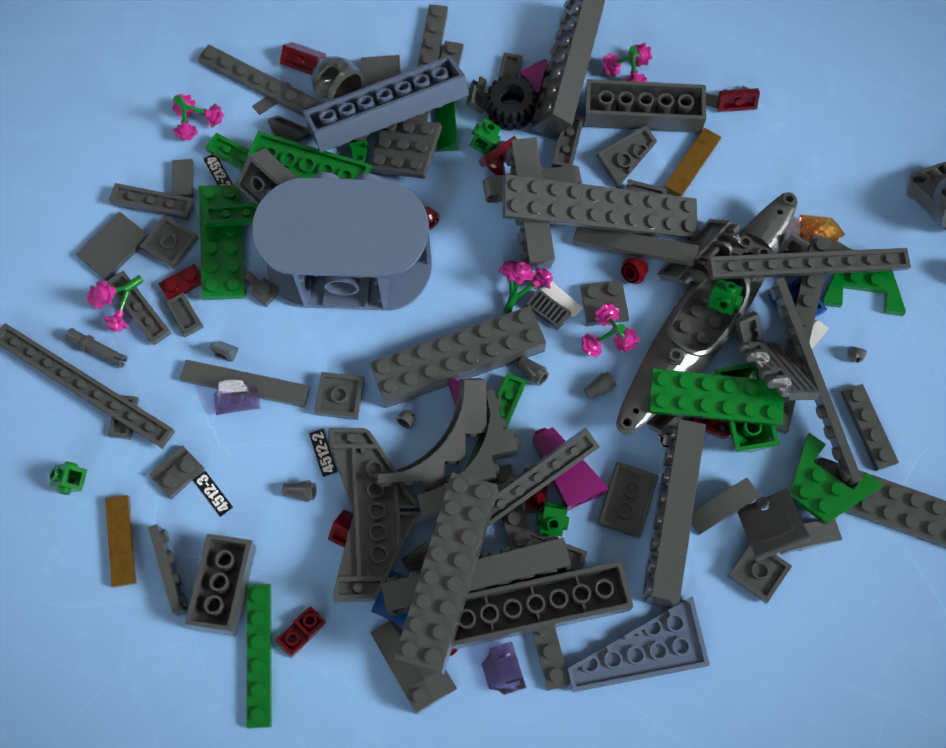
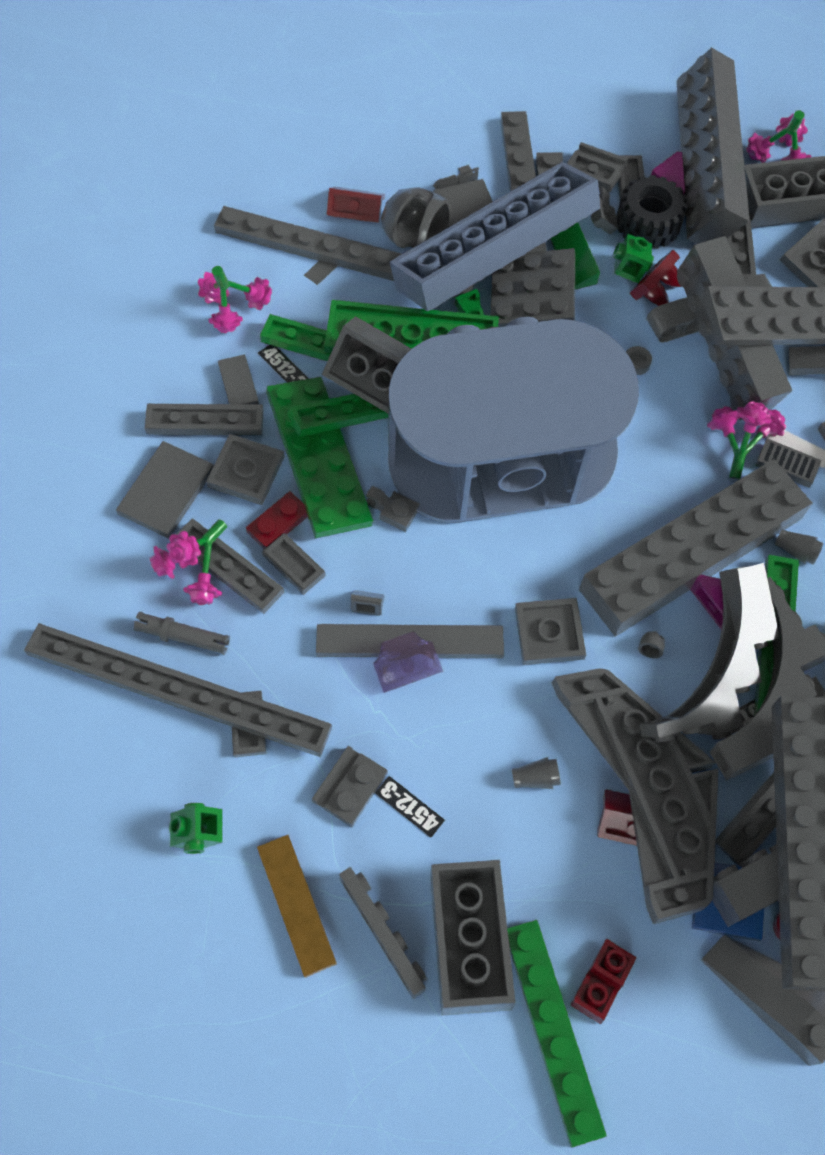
camera: 15 degrees left, 5 degrees down
(287, 129) = (364, 293): dark grey slope -> none
(323, 452) = (549, 716): black sticker -> none
(390, 49) = (466, 175): none -> dark grey piece
(466, 213) = (640, 358): none -> dark grey tile
(483, 59) = (598, 164): none -> dark grey plate

